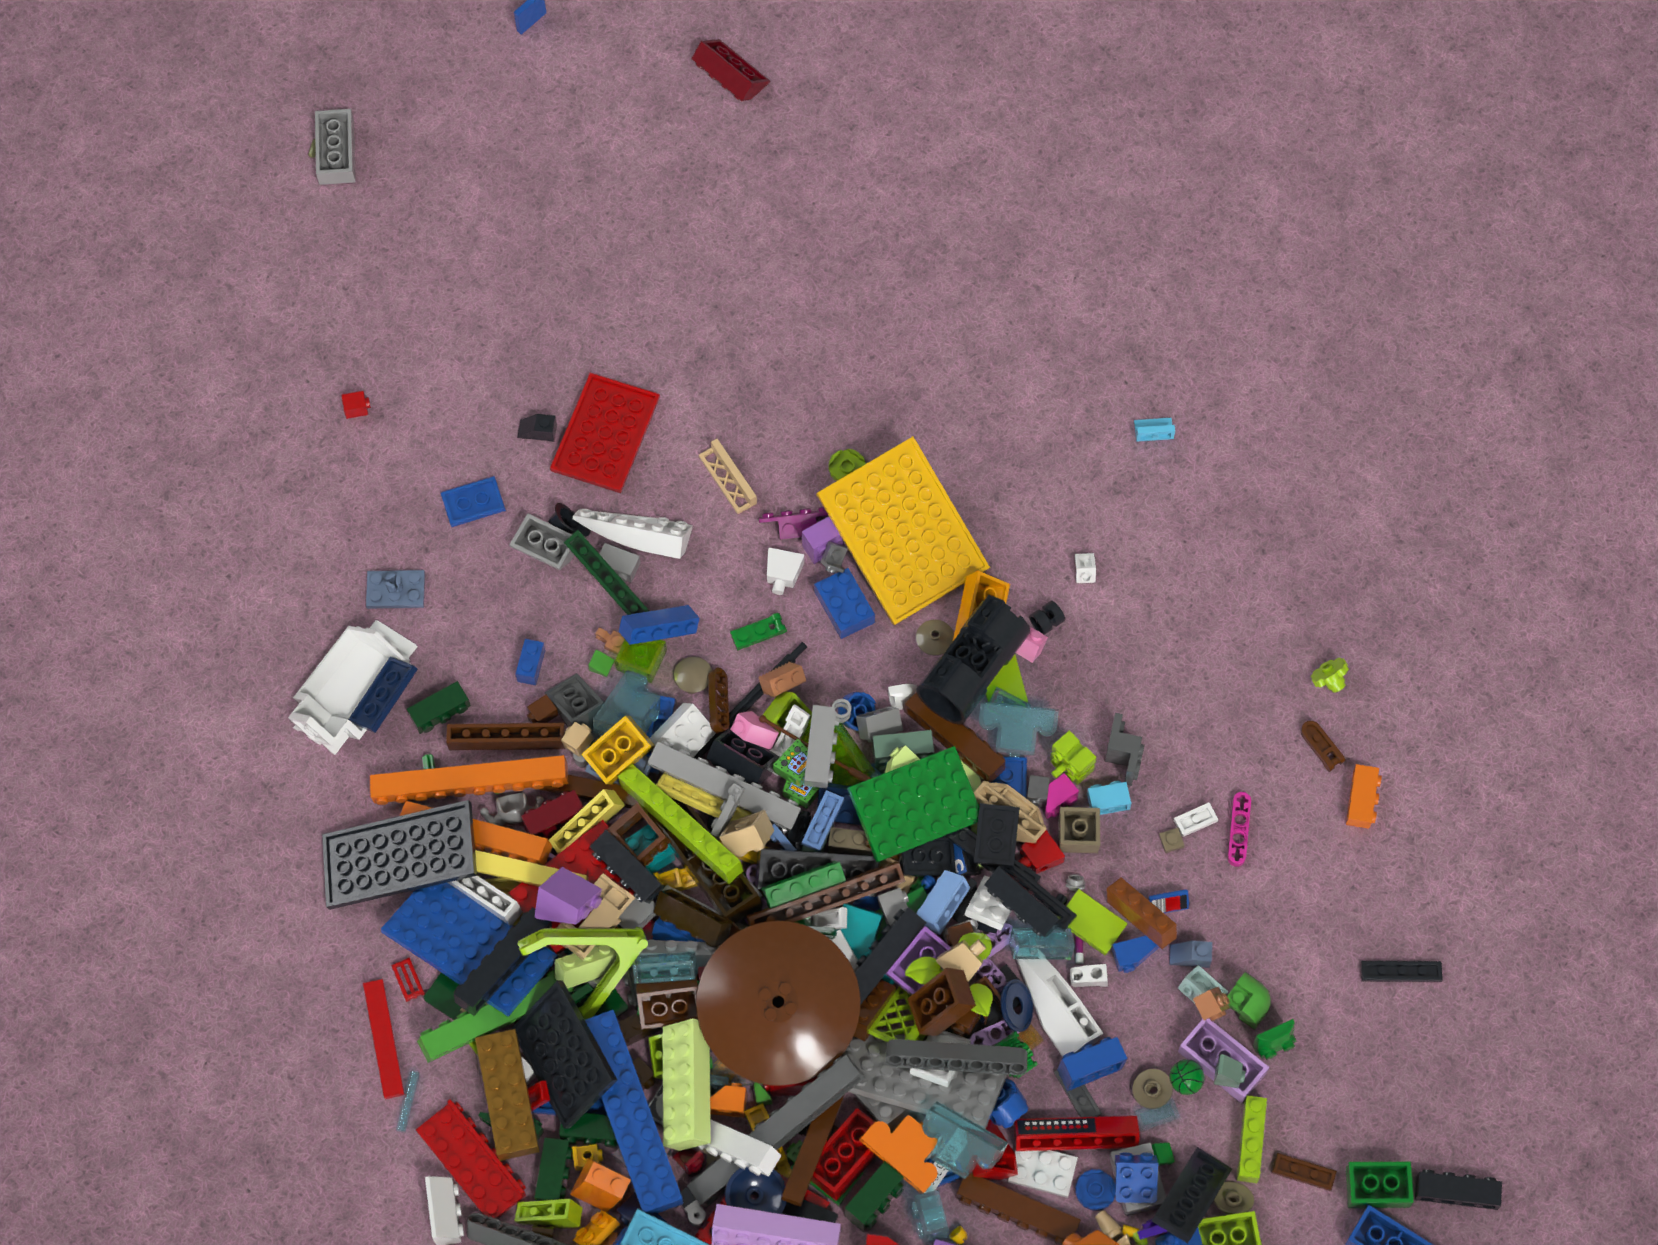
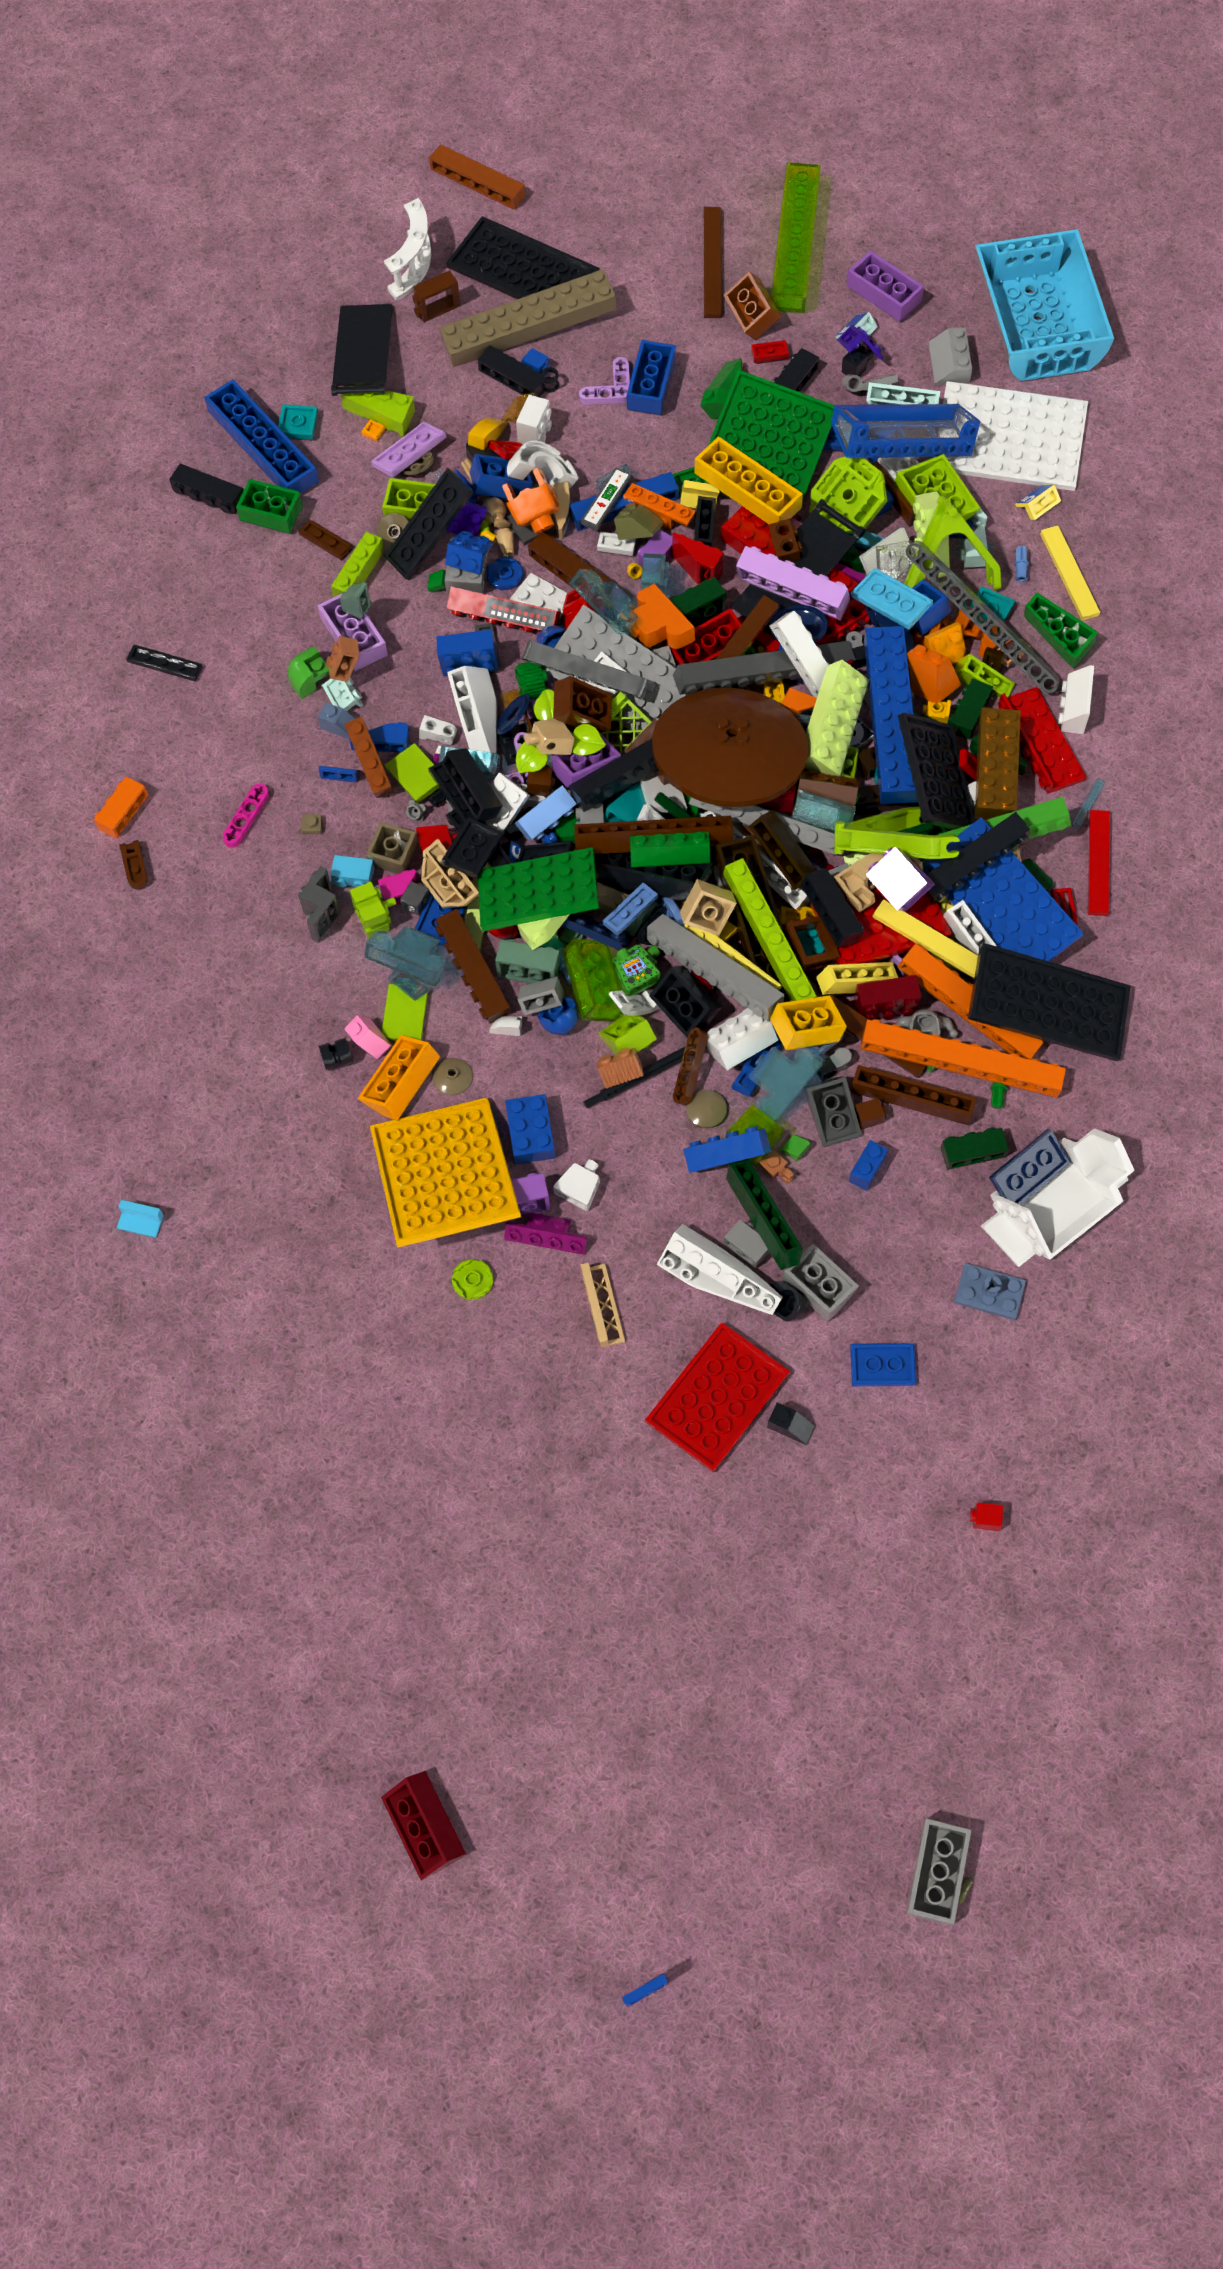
camera: 160 degrees left, 0 degrees up
(577, 738) = (844, 1060): tan brick -> none
(728, 809) = (720, 934): light grey hinge -> none
(752, 730) = (665, 1024): bright pink slope -> none
(758, 631) = (626, 1132): green plate -> none
(820, 743) = (606, 971): light grey hinge -> none
(834, 557) = (526, 1164): flat silver bracket -> none
(851, 770) = (586, 943): reddish brown piece -> none
(973, 660) = (429, 1003): black cylinder -> none
(1085, 568) = (275, 1096): white bracket -> none
(1152, 1079) = (423, 621): dark tan dish -> none
(1154, 1117) = (427, 613): clear light blue tile -> none
(1186, 1077) = (390, 625): green piece -> none
(1195, 819) = (281, 833): white plate -> none
(1275, 1039) = (300, 632): green slope -> none
(1331, 675) = (93, 918): lime plant -> none

